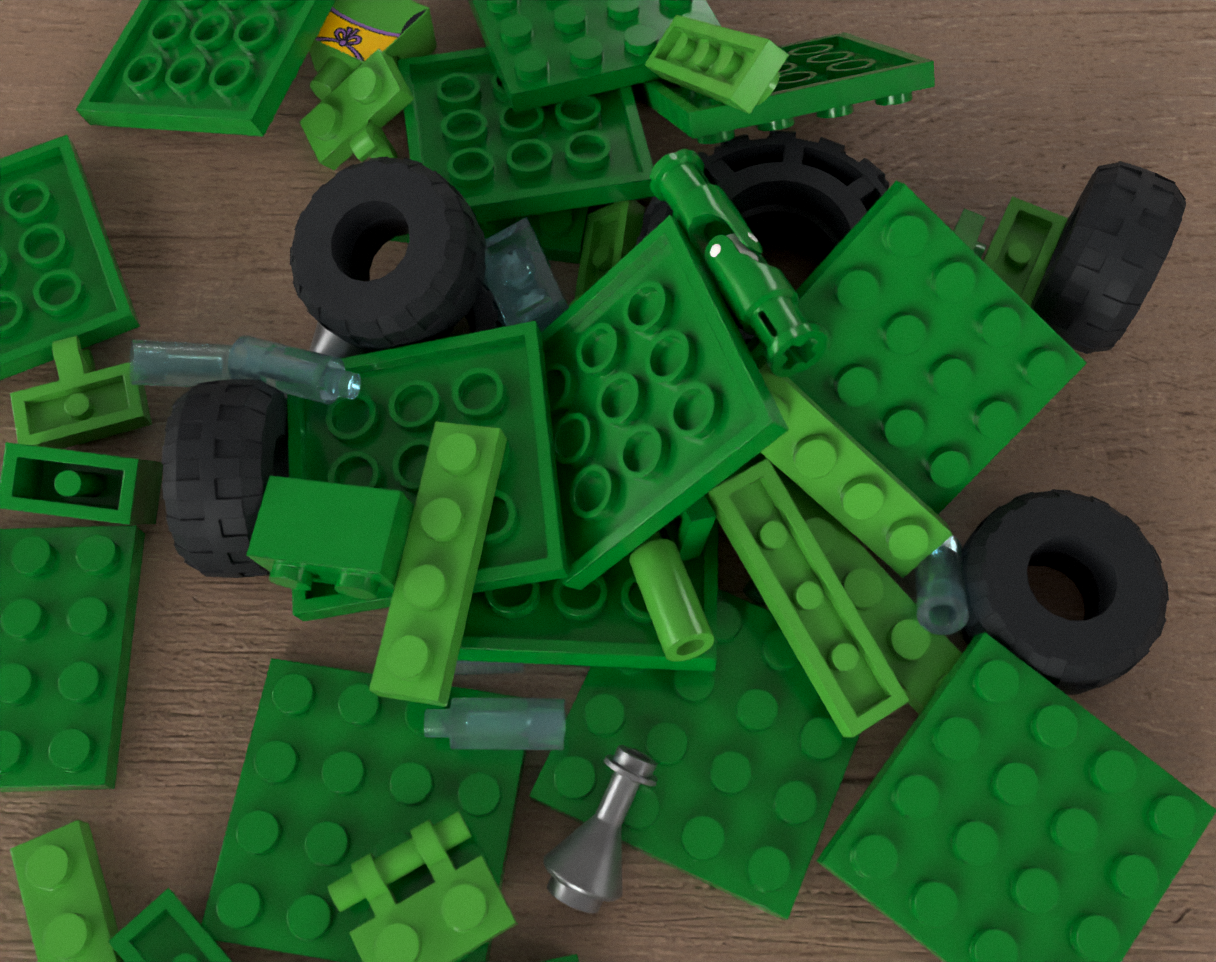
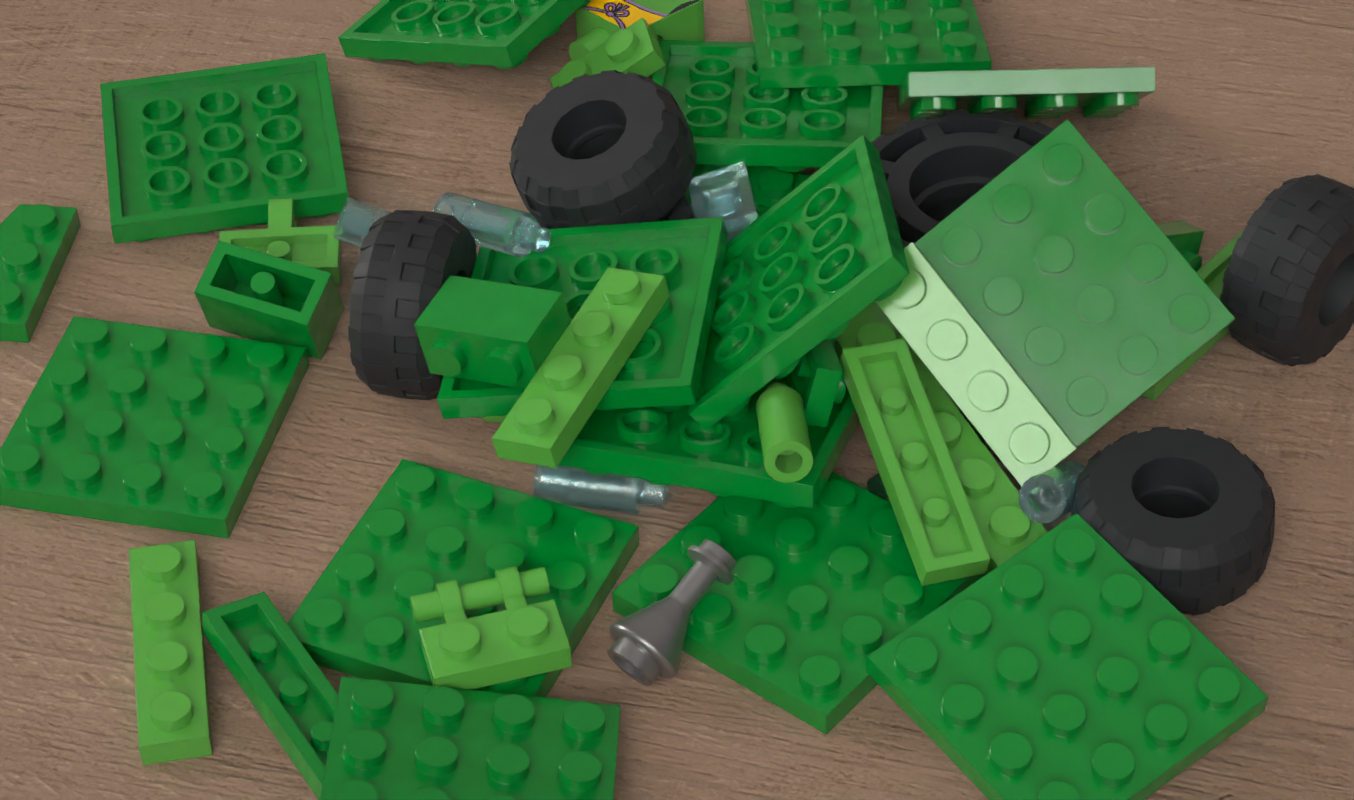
camera: 15 degrees right, 25 degrees down
(500, 723) = (601, 517): clear light blue cylinder -> none
(718, 62) = (953, 43): bright green plate -> none
(751, 288) = (912, 176): green piece -> none

